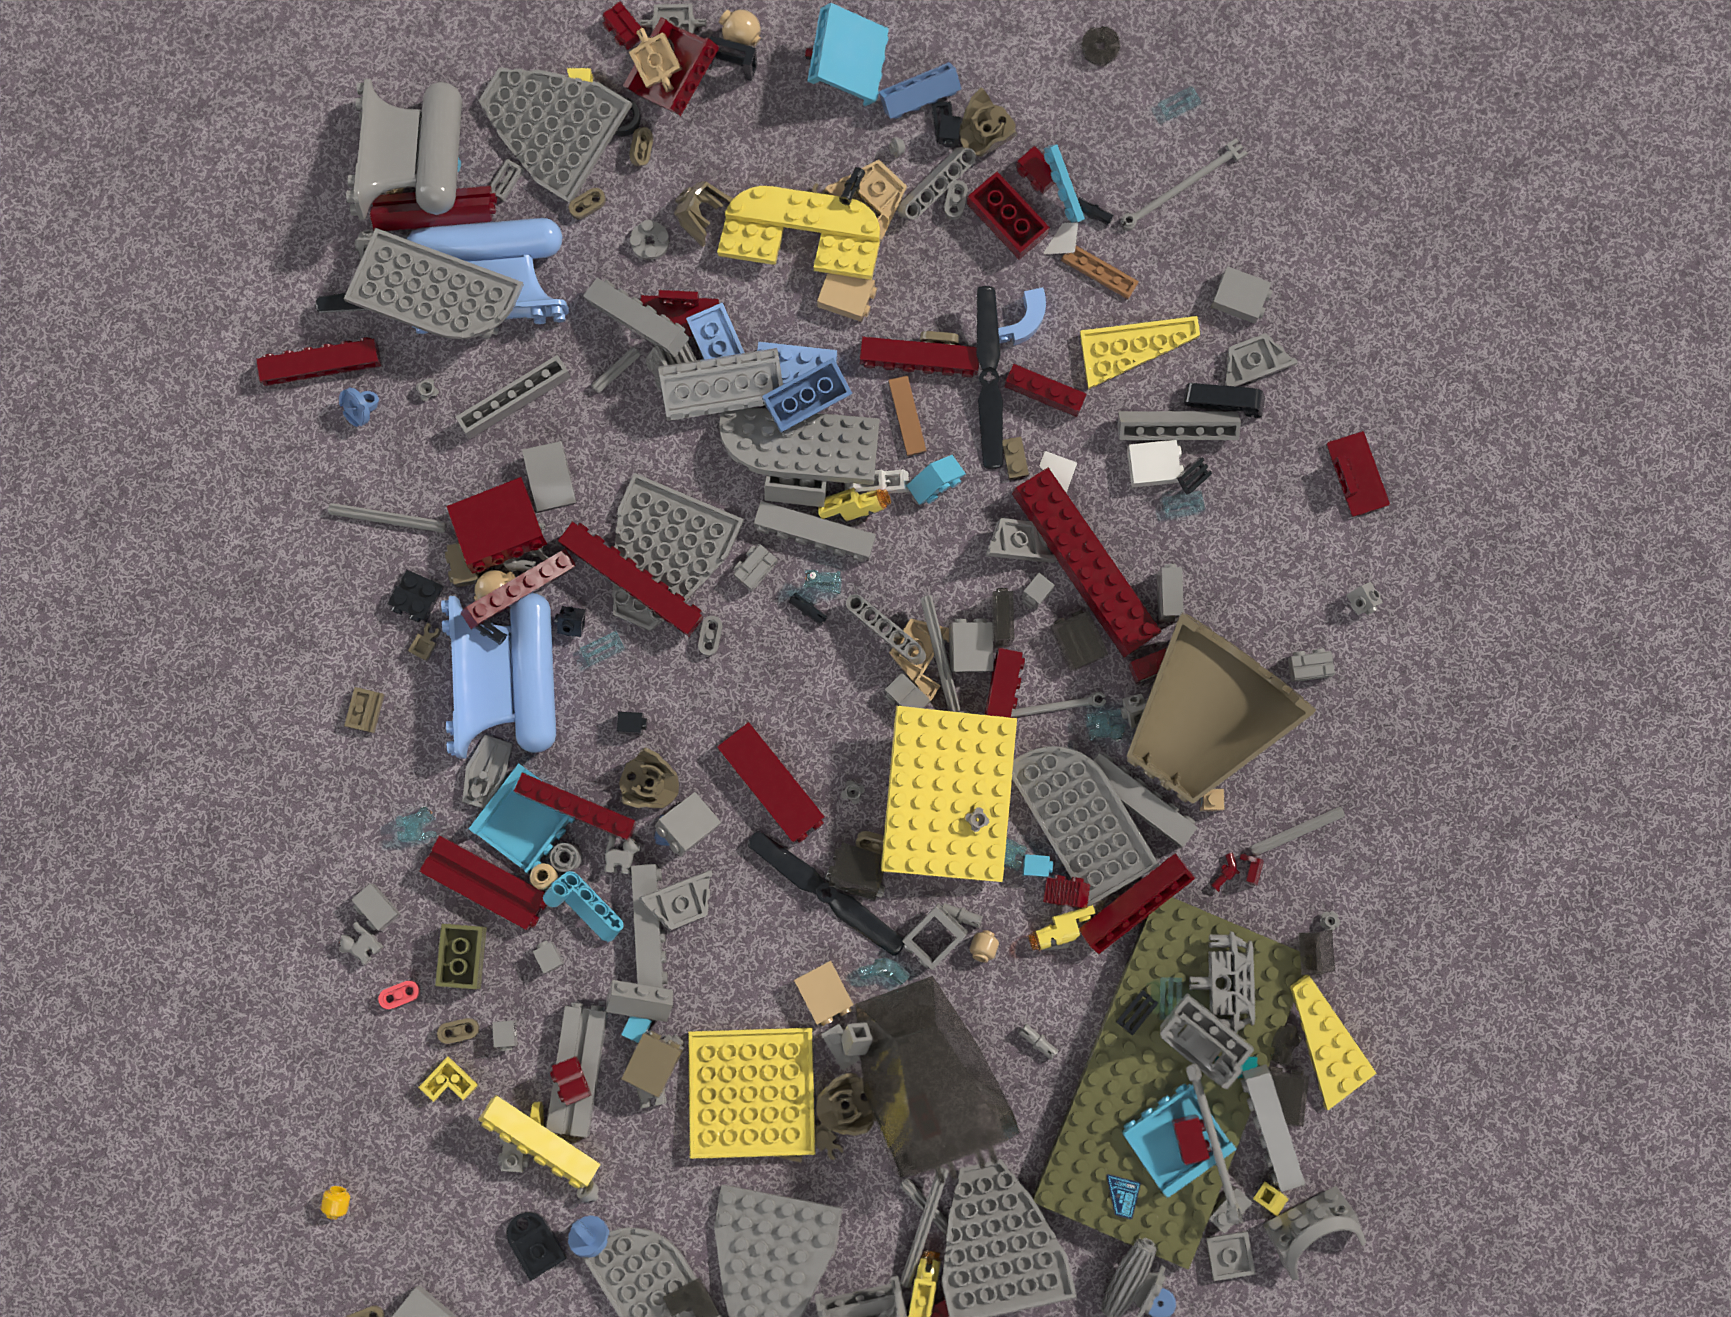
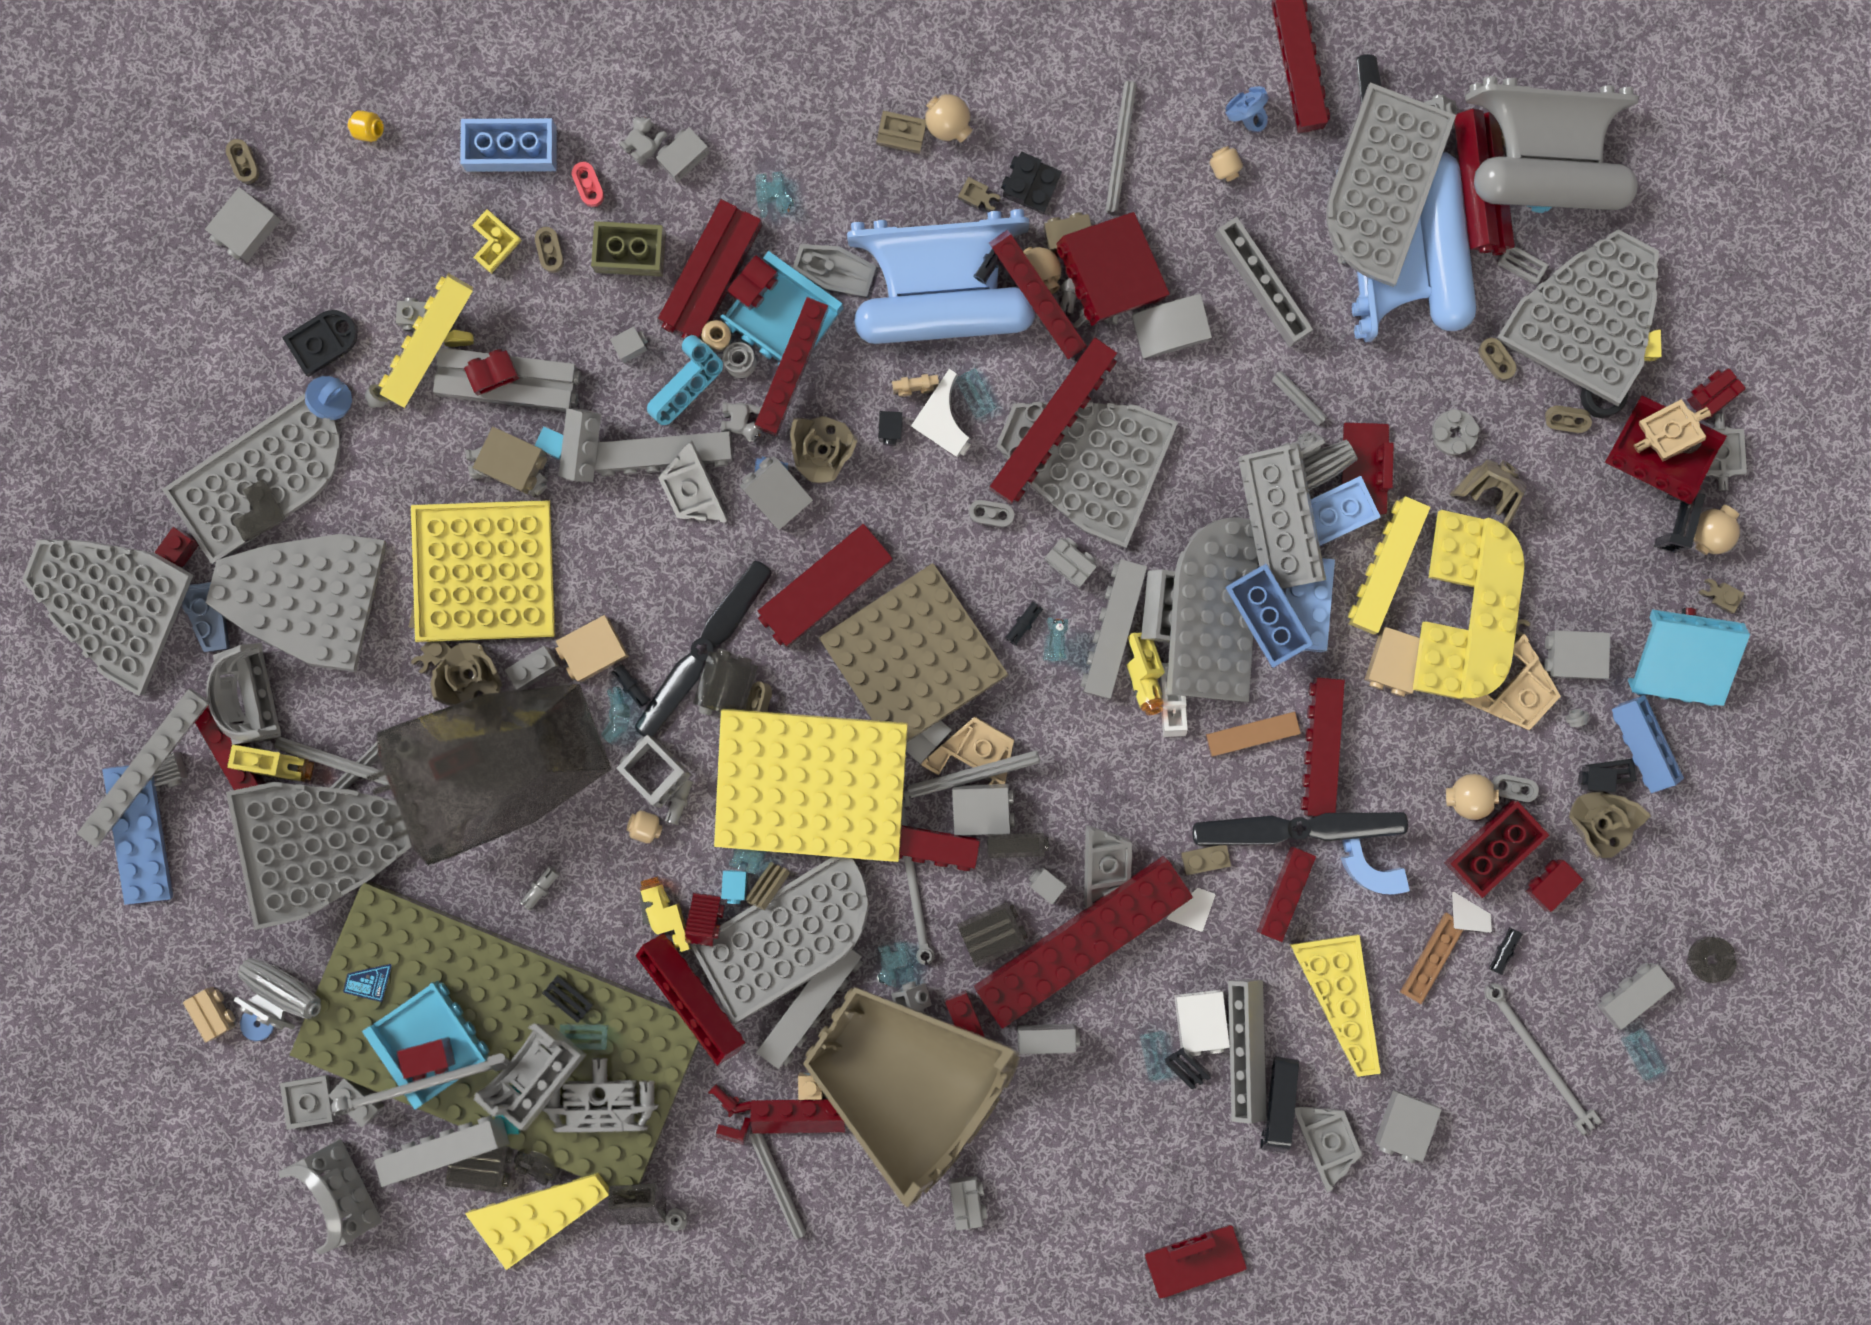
camera: 90 degrees right, 5 degrees up
(354, 666) = (948, 118): none -> tan brick
(359, 1067) = (508, 145): none -> light blue brick
(406, 426) = (1226, 163): none -> tan head
(421, 387) = (1275, 181): light grey plate -> none
(497, 843) = (753, 283): none -> dark red brick
(505, 1034) = (545, 300): light grey brick -> none
(570, 621) = (1004, 356): black brick -> none
(594, 707) = (906, 386): none -> tan plate
(628, 680) = (938, 421): none -> white arch
(636, 317) = (1359, 417): light grey brick -> none
(764, 298) = (1389, 565): none -> light yellow brick
(795, 25) = (1725, 596): none -> dark tan plate
(833, 704) = (914, 654): none -> dark tan plate
(843, 144) = (1577, 655): none -> light grey brick
(853, 797) = (815, 671): light grey plate -> none
(856, 178) = (1536, 670): black pin -> none
(856, 1039) = (535, 684): light grey brick -> none
(857, 958) = (631, 686): none -> black pin
(892, 635) = (1004, 702): light grey beam -> none
(928, 186) = (1535, 775): light grey beam -> none
(936, 478) = (1176, 768): medium azure brick -> none
(939, 337) = (1345, 770): dark tan plate -> none
(963, 233) = (1472, 796): none -> tan brick
(971, 818) = (773, 815): light grey plate -> none
(1036, 839) = (765, 885): none -> dark tan tile
(1061, 178) = (1544, 911): medium azure plate -> none
(1130, 107) = (1635, 995): none -> light grey brick
(1238, 812) = (795, 1116): none -> dark red brick
(1270, 1198) = (368, 1148): light yellow brick -> none
(1364, 599) = (1045, 1267): light grey brick -> none

